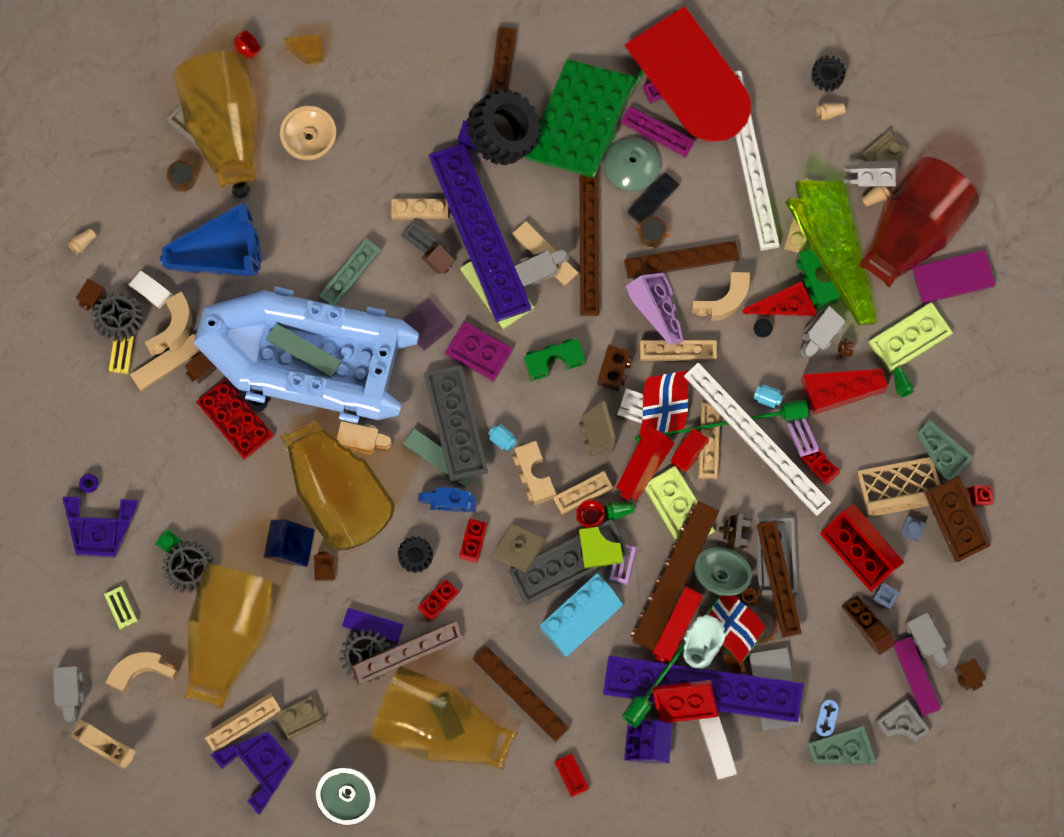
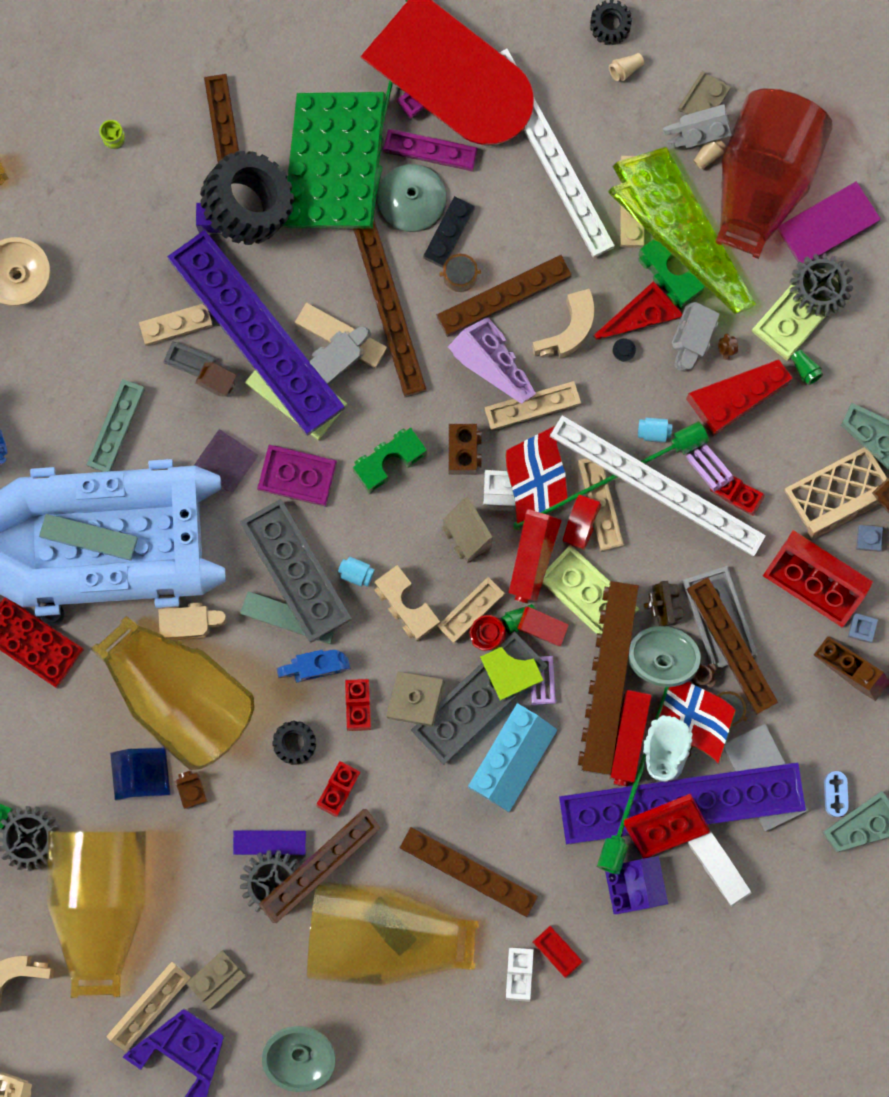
camera: 15 degrees left, 5 degrees up
(412, 46) = (109, 130): none -> lime wheel
(536, 784) = (519, 974): none -> white slope
(635, 521) = (543, 626): none -> red tile
(731, 665) = (707, 766): reddish brown panel -> none
(926, 308) = (827, 291): none -> dark grey gear

